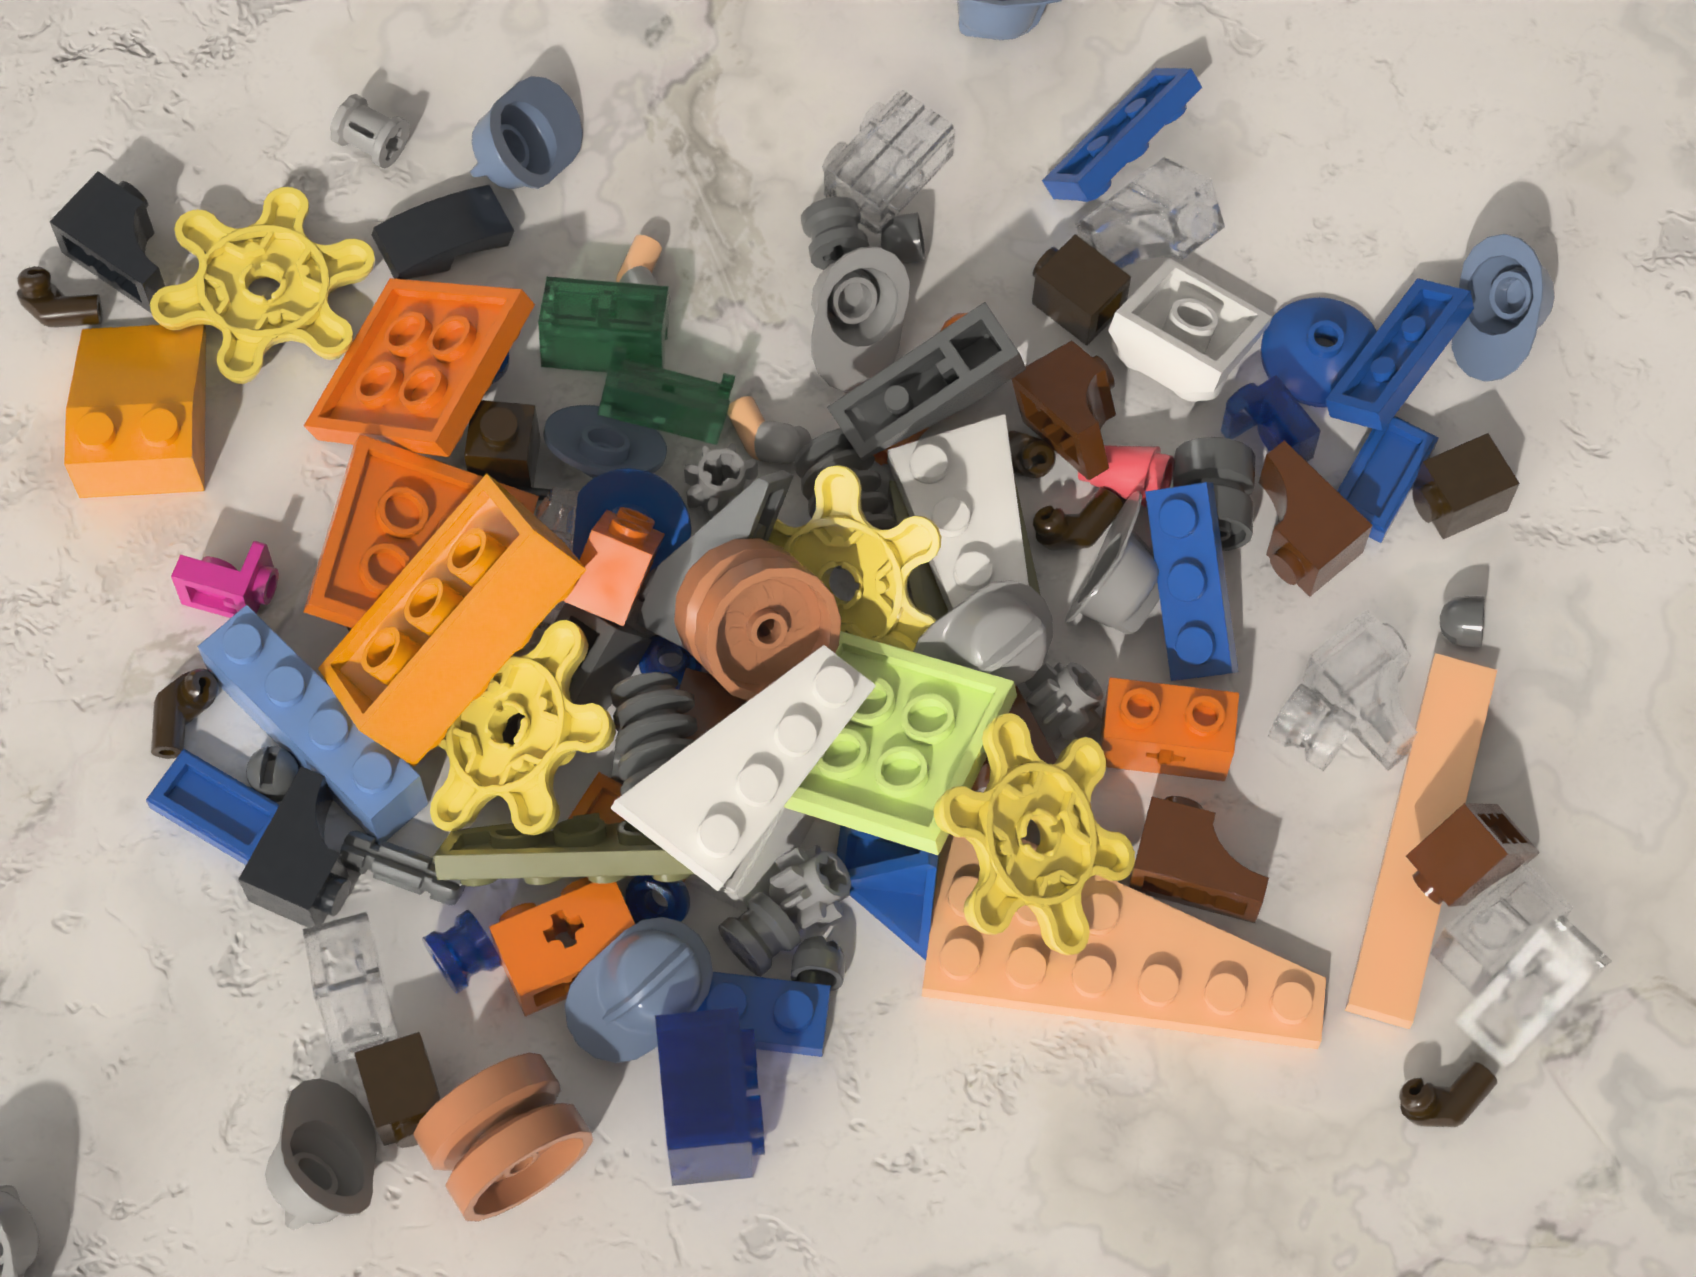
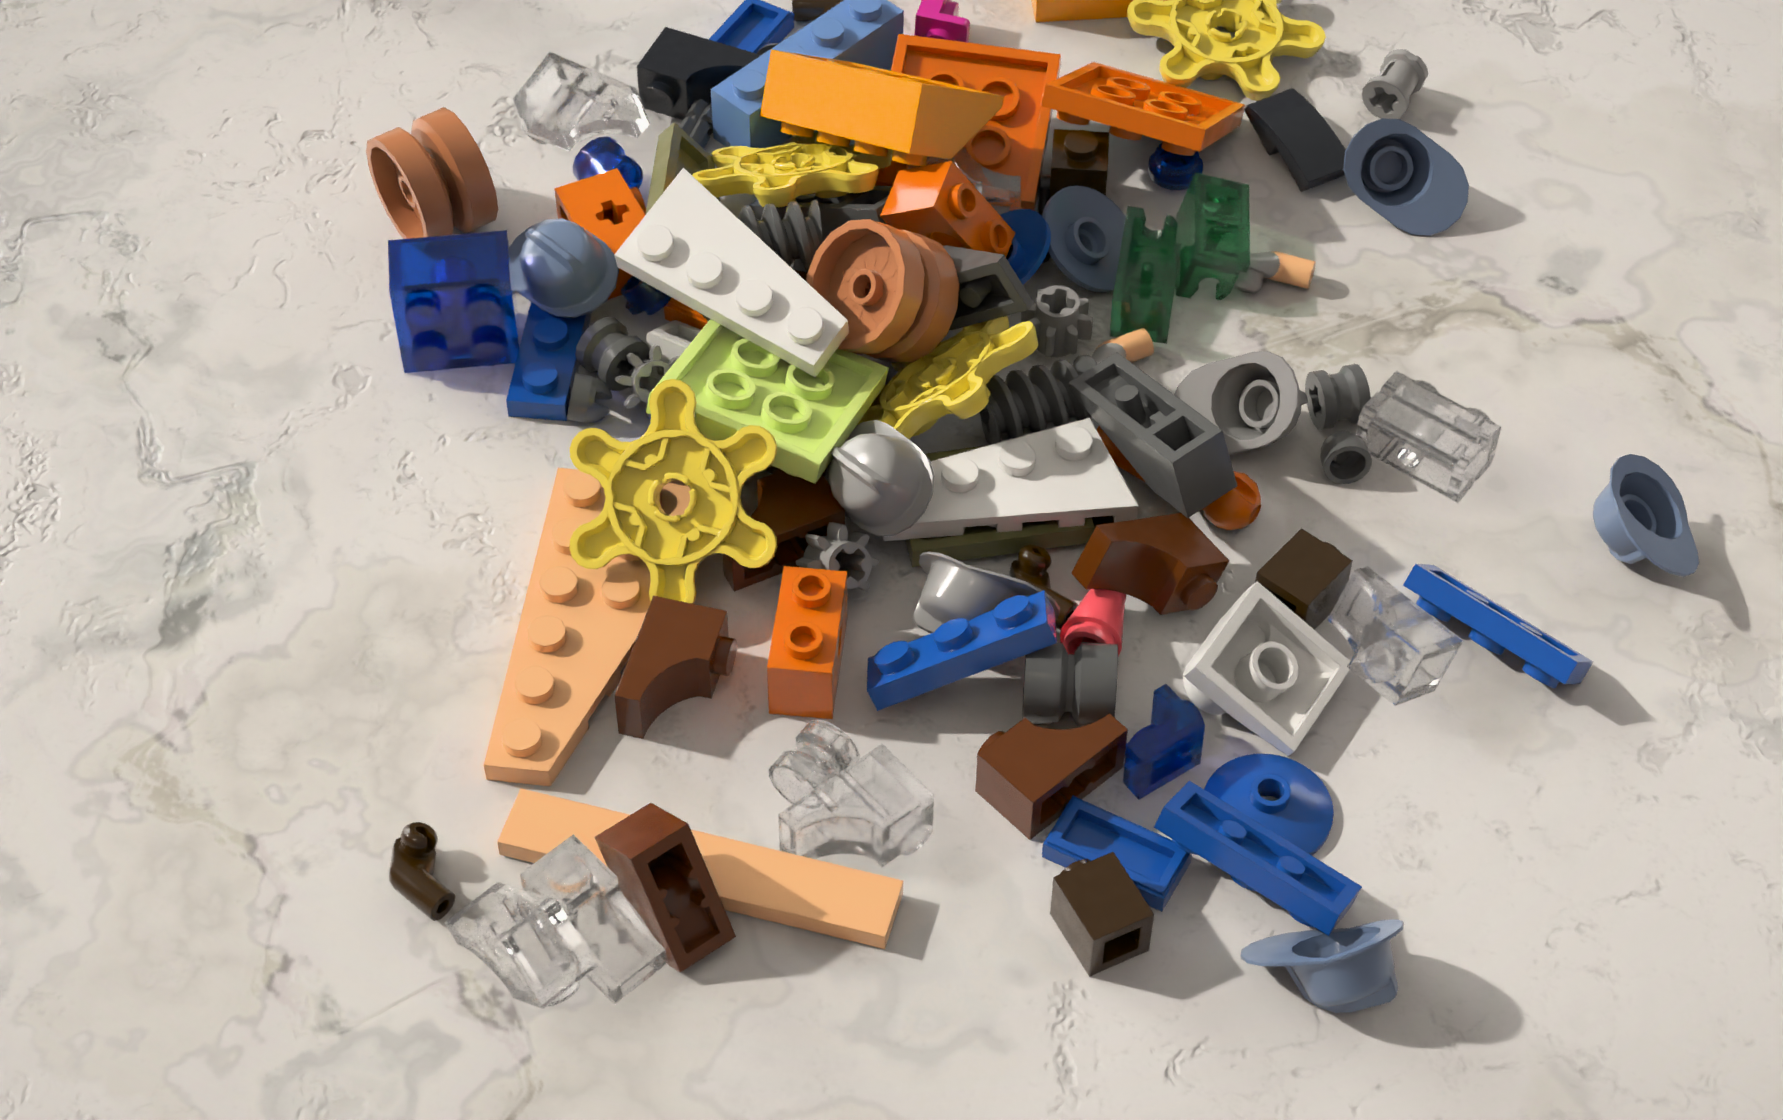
camera: 90 degrees right, 15 degrees down
(322, 1155) = (427, 79): light grey piece -> none
(398, 1087) = (500, 137): dark brown brick -> none
(1463, 621) = (943, 915): dark grey hinge -> none

